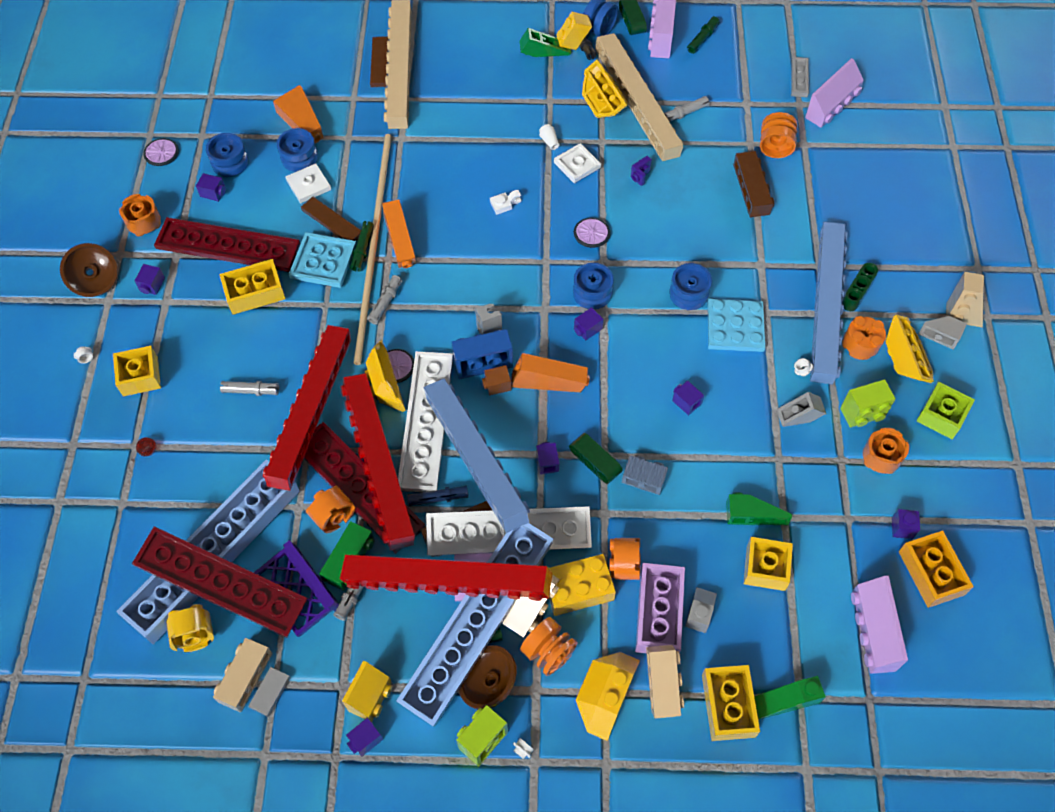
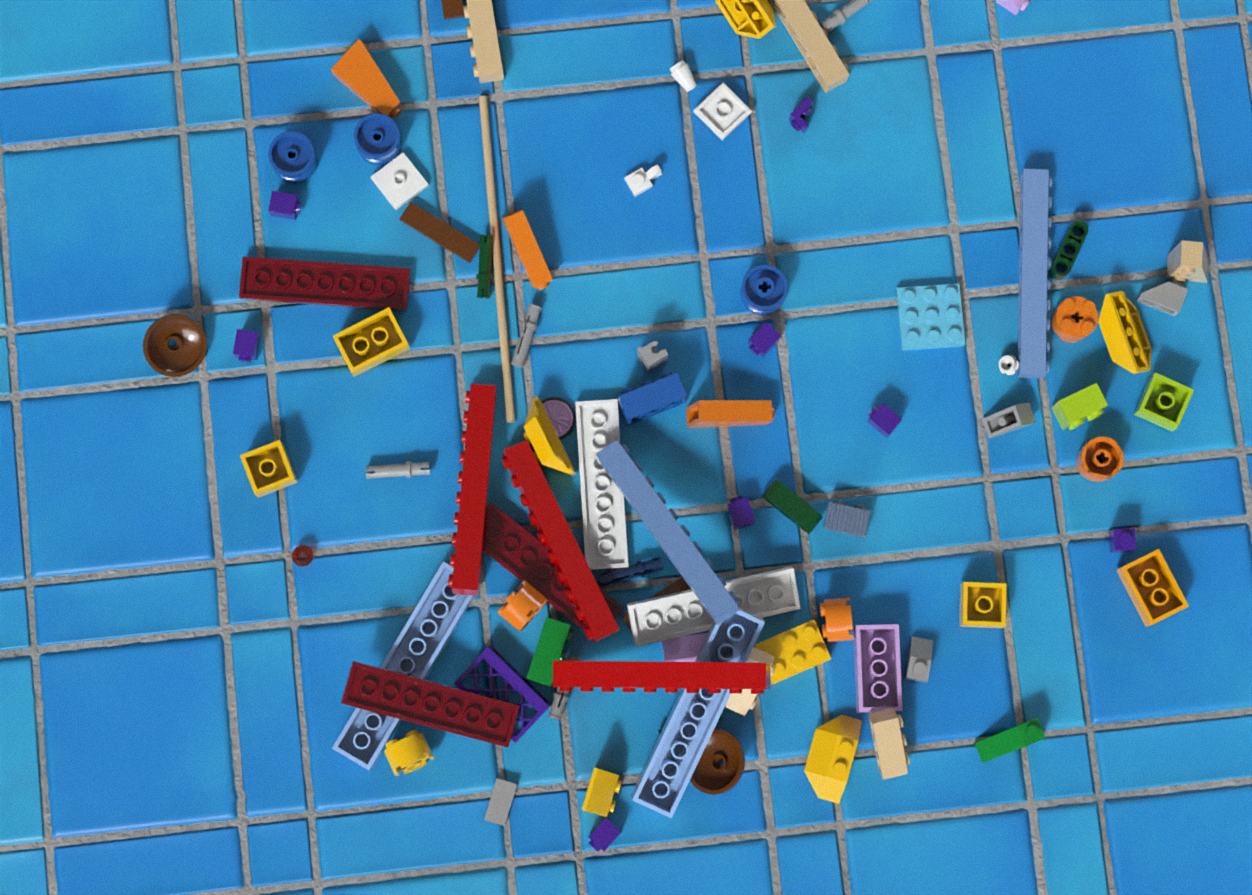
camera: 10 degrees left, 20 degrees up
(83, 354) = (199, 452): white plate -> none
(140, 214) = (215, 247): orange brick -> none
(161, 152) = (205, 155): lavender wheel -> none
(242, 674) = (470, 790): tan brick -> none
(322, 260) = (442, 291): medium azure plate -> none
(481, 735) = (719, 819): lime brick -> none
(497, 380) = (671, 426): dark orange brick -> none
(522, 749) = (759, 824): white plate -> none
(552, 650) = (772, 723): orange wheel -> none
(591, 232) = (752, 210): lavender wheel -> none
(690, 286) = (877, 265): blue wheel -> none
(730, 703) = (954, 754): yellow brick -> none
(749, 510) = (959, 545): green slope -> none
(753, 184) = (937, 117): reddish brown brick -> none
(778, 135) = (964, 46): orange wheel -> none
(879, 626) = (1095, 656): lavender slope -> none

